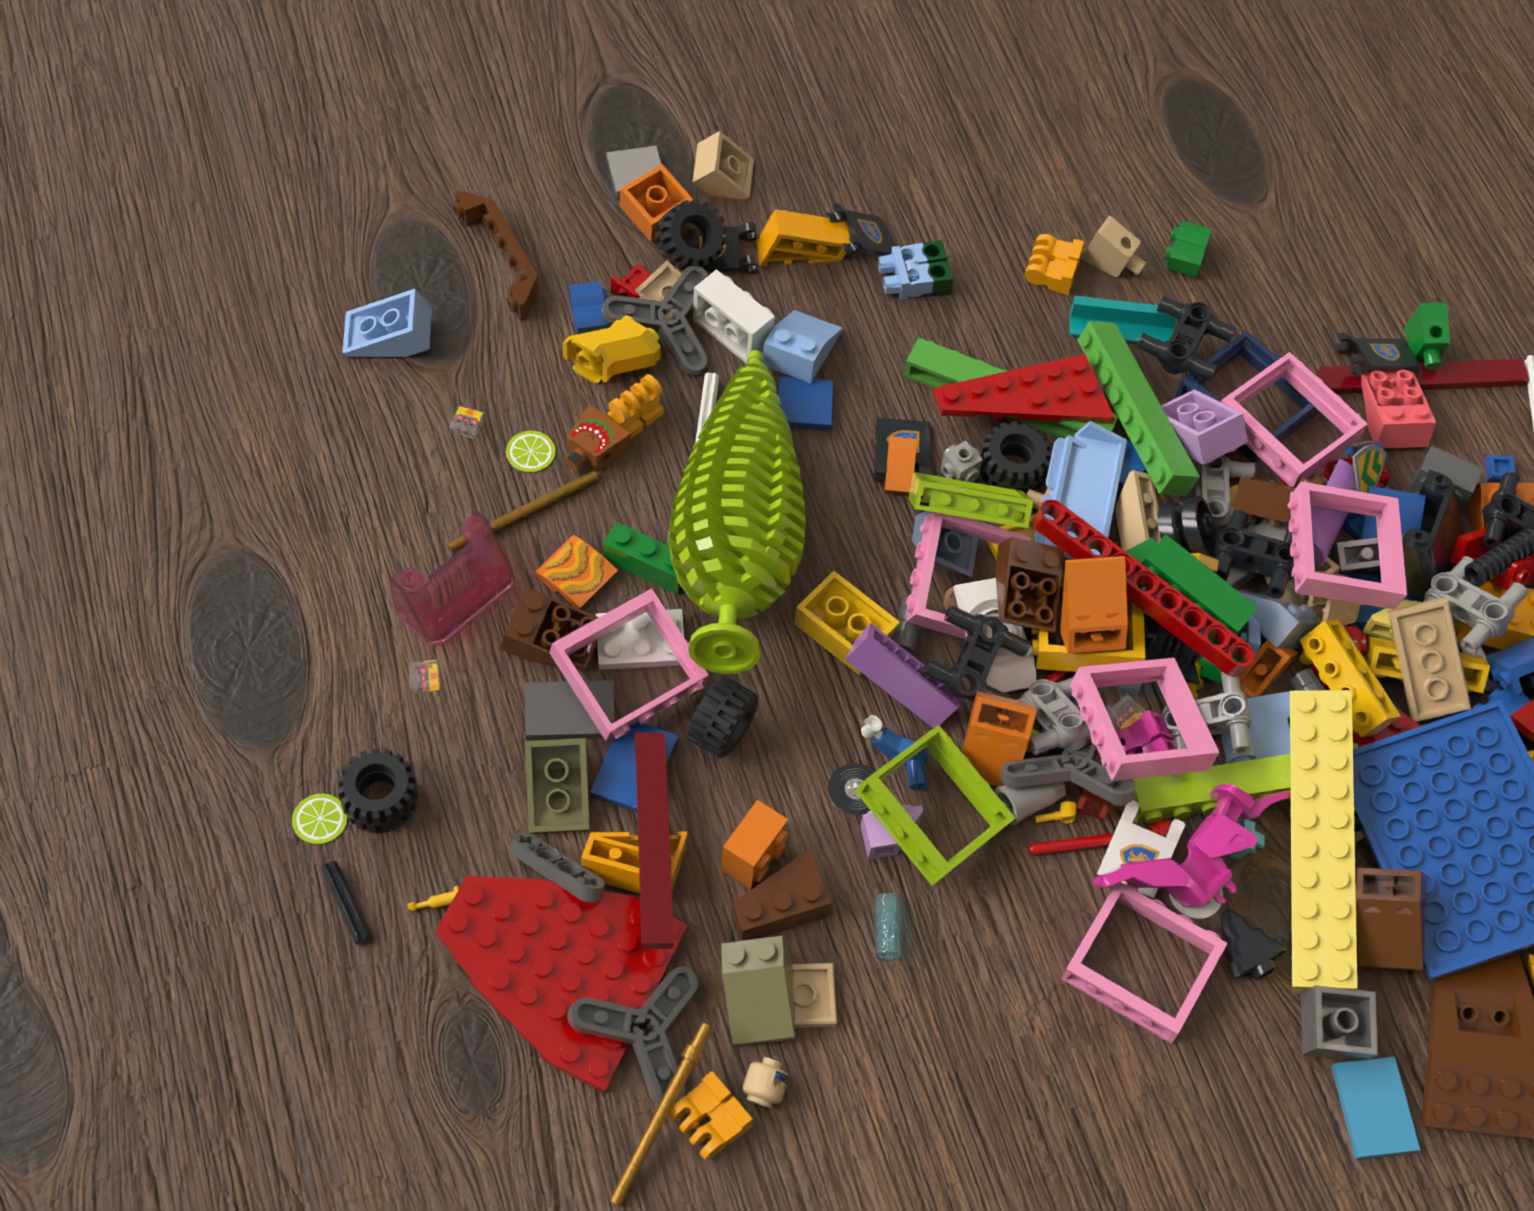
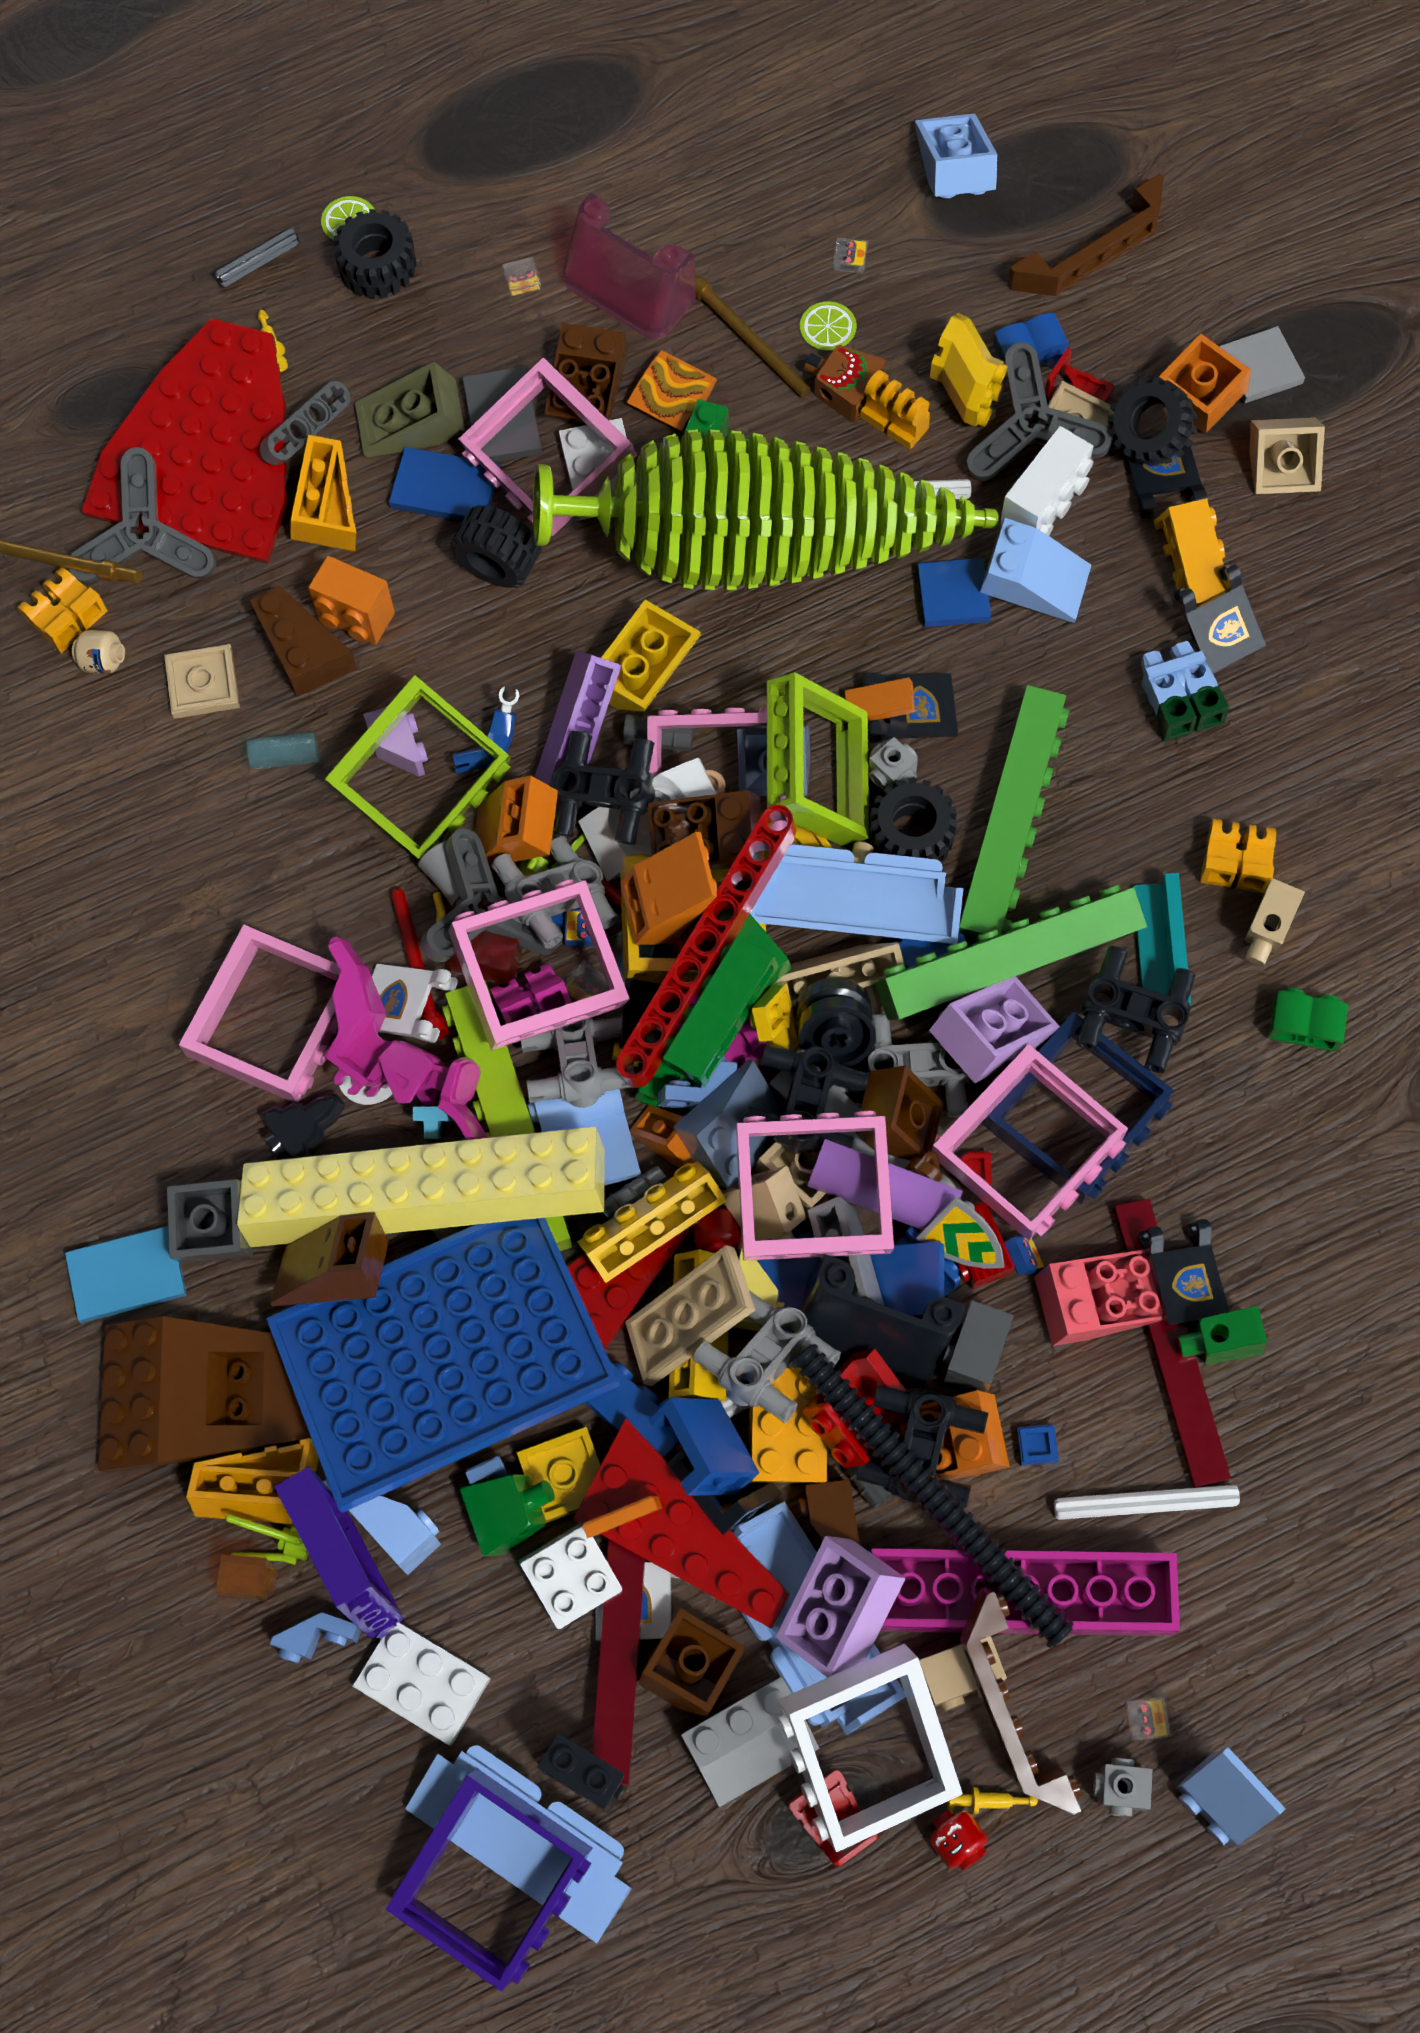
camera: 90 degrees right, 10 degrees up
(653, 842) = (338, 496): dark red tile -> none
(759, 990) = (195, 630): olive slope -> none
(843, 786) = (461, 697): black sticker -> none
(1035, 392) = (1009, 841): red wing -> none

